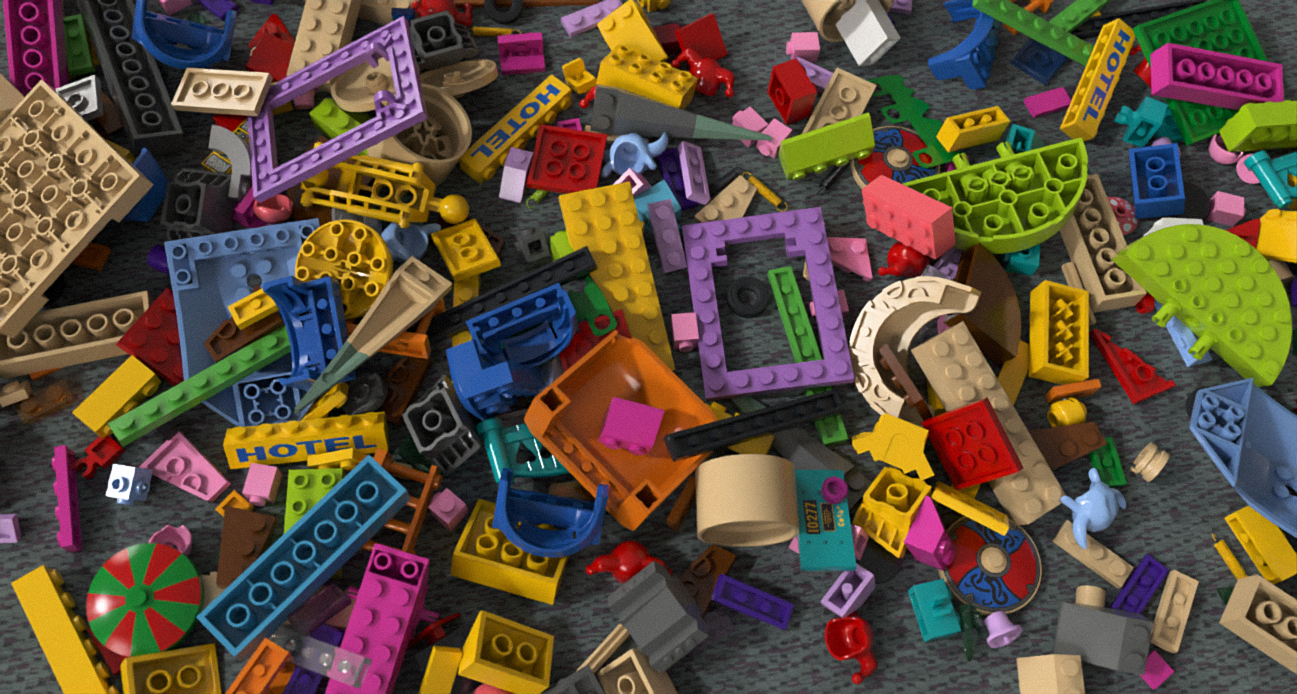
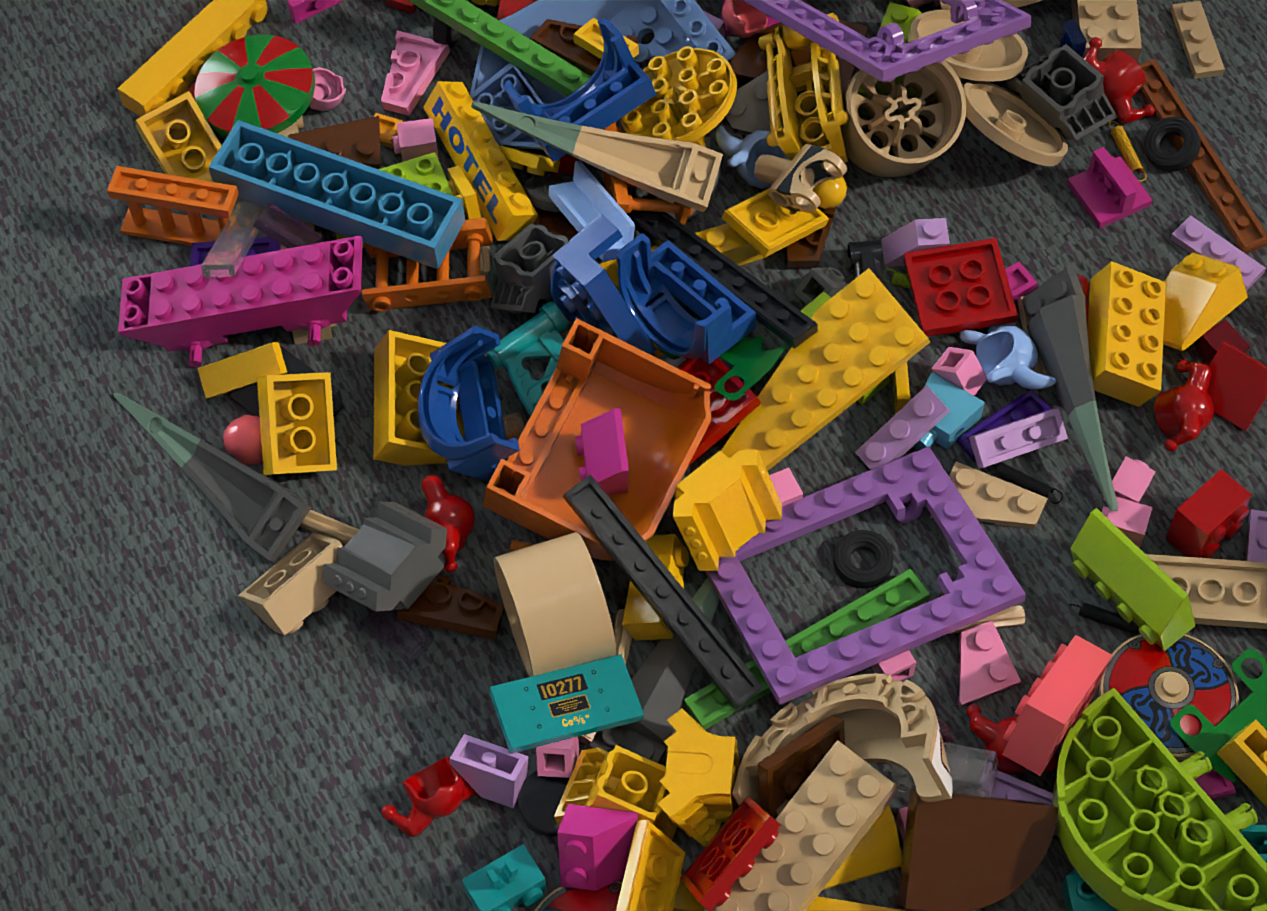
camera: 80 degrees right, 5 degrees down
(129, 484) = (374, 27): light blue brick -> none
(408, 366) = (584, 200): none -> light blue panel
(434, 631) = (306, 350): red piece -> none
(443, 218) = (796, 178): none -> tan connector
(448, 509) = (447, 318): bright pink brick -> none
(516, 129) = (981, 218): yellow brick -> none
(516, 211) = (864, 256): none -> black piece
(577, 77) = (1105, 253): yellow bracket -> none
(700, 360) = (724, 506): none -> yellow slope
(752, 602) = (443, 666): dark purple plate -> none
(765, 192) = (1039, 536): yellow piece -> none
(834, 490) = (607, 704): magenta tile -> none

